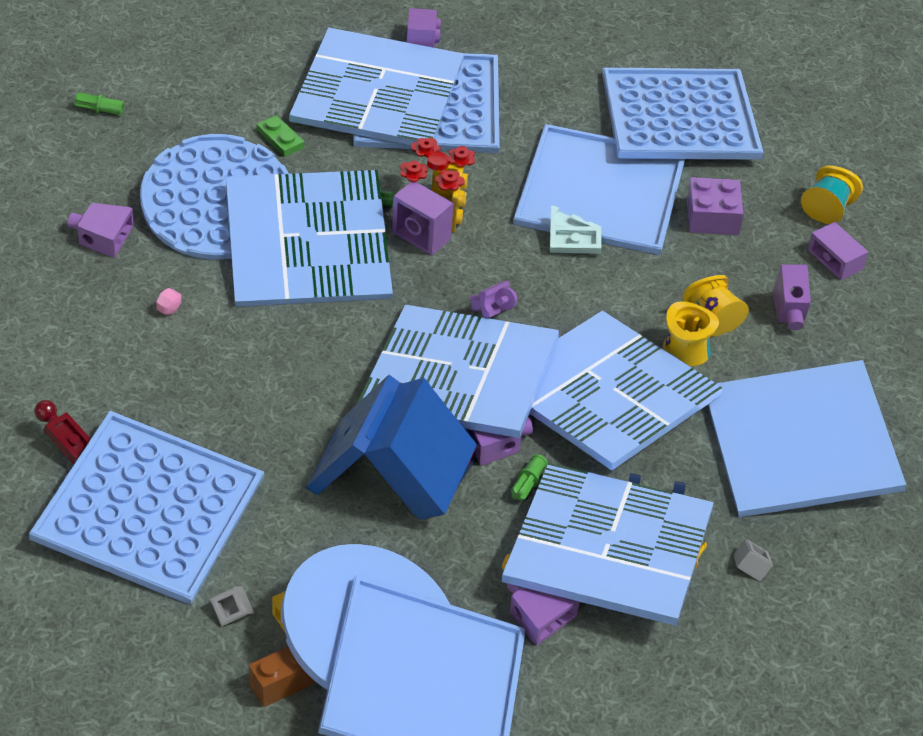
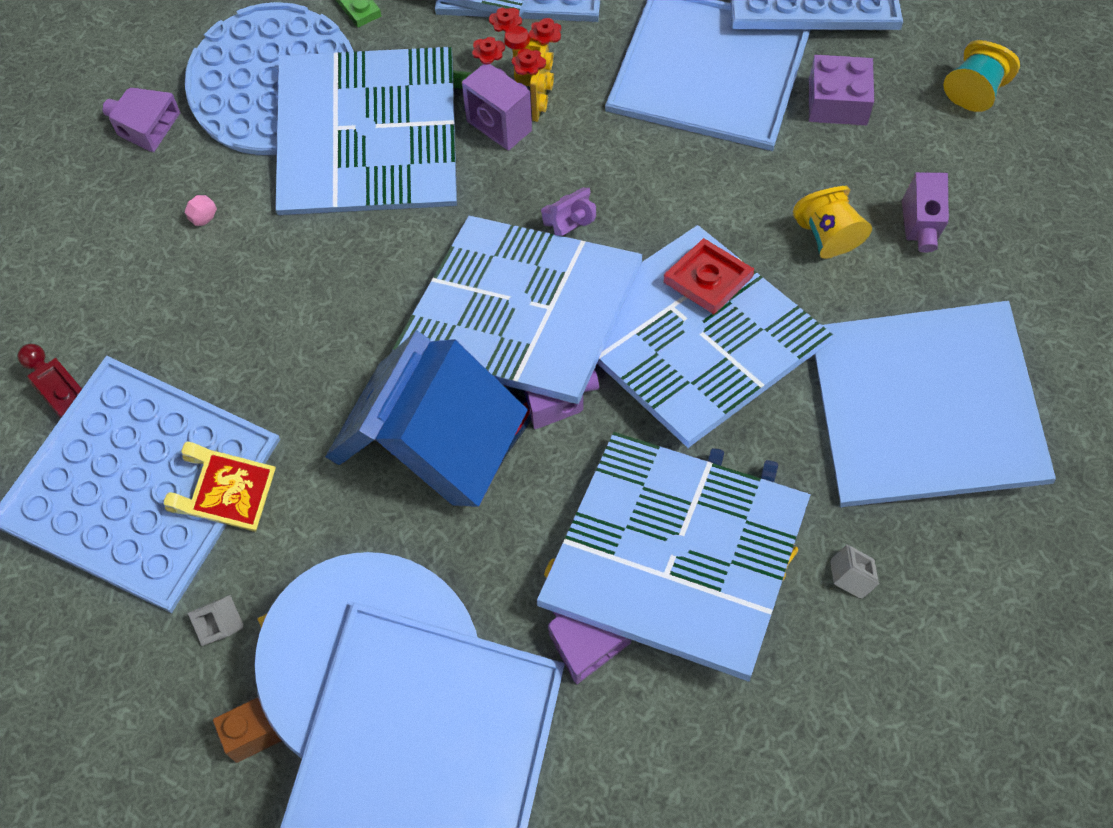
camera: 10 degrees right, 15 degrees up
(226, 510) = (227, 490): none -> flag
(528, 477) = (589, 450): bright green axle -> none
(573, 234) = (672, 126): light aqua wing -> none
(616, 345) = (708, 276): none -> red plate
(690, 332) = (798, 258): yellow hat -> none
(838, 250) = (984, 148): medium lavender brick -> none

